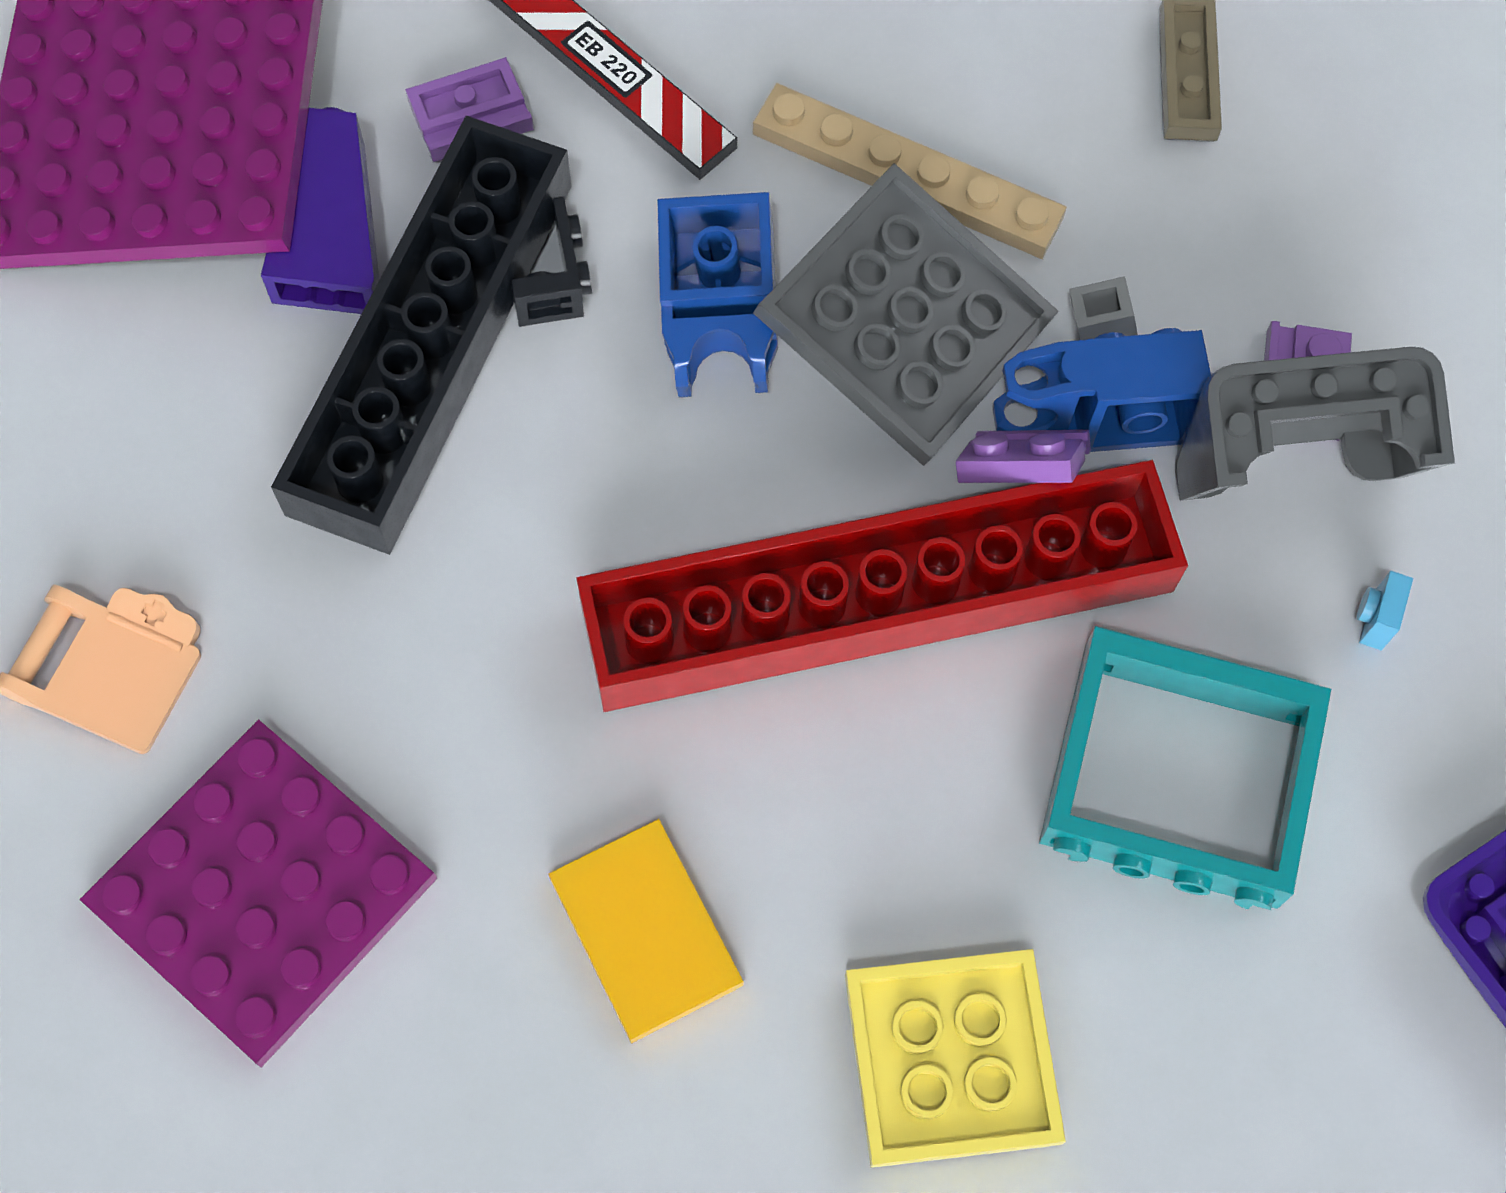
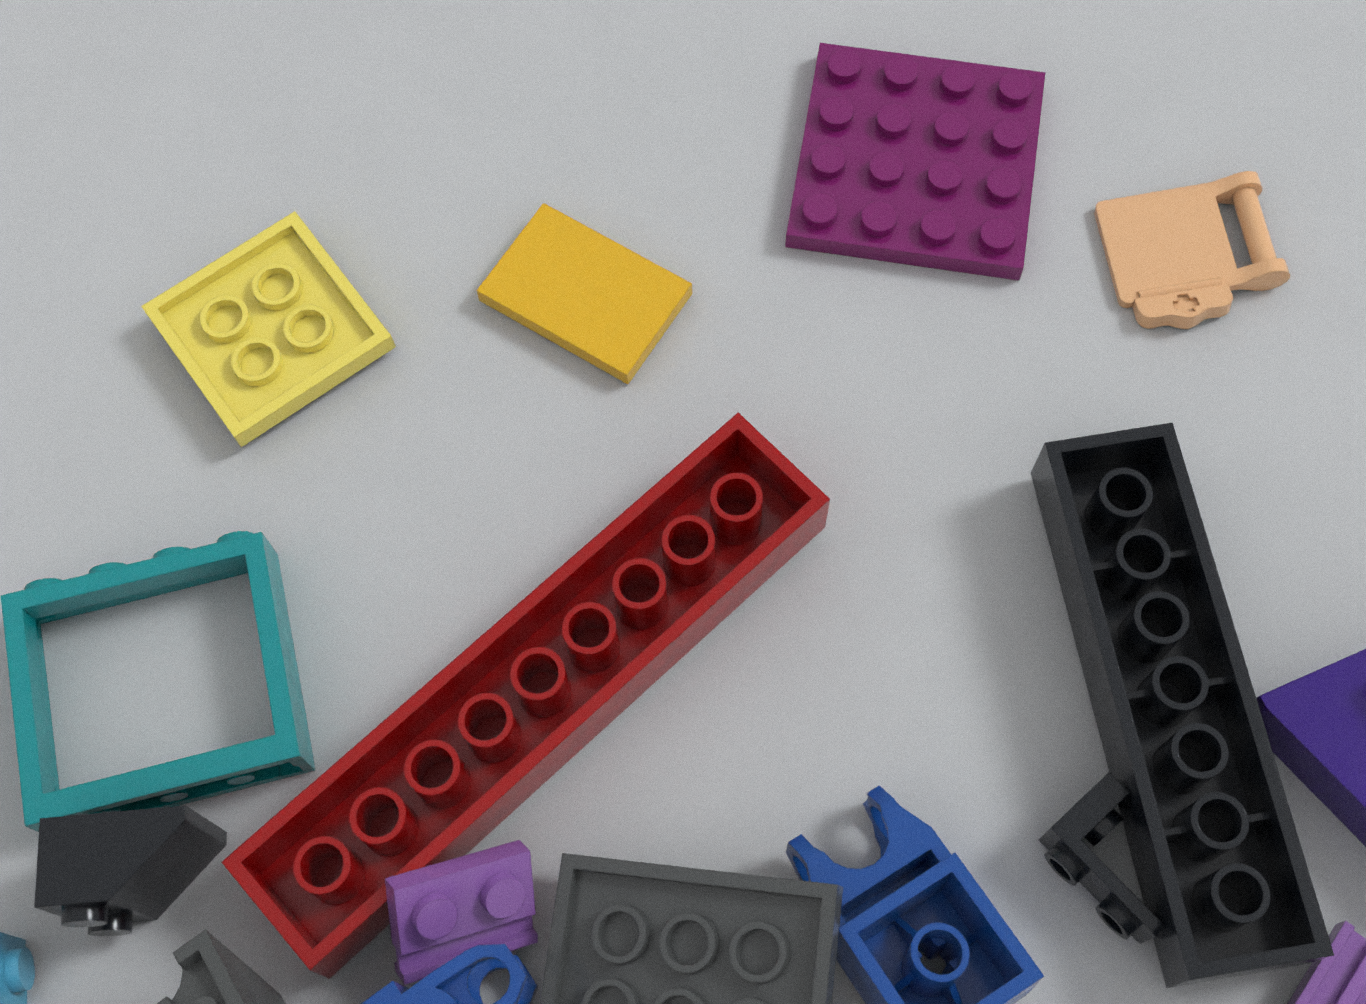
camera: 155 degrees right, 0 degrees up
(1261, 616) = (121, 865): none -> black slope

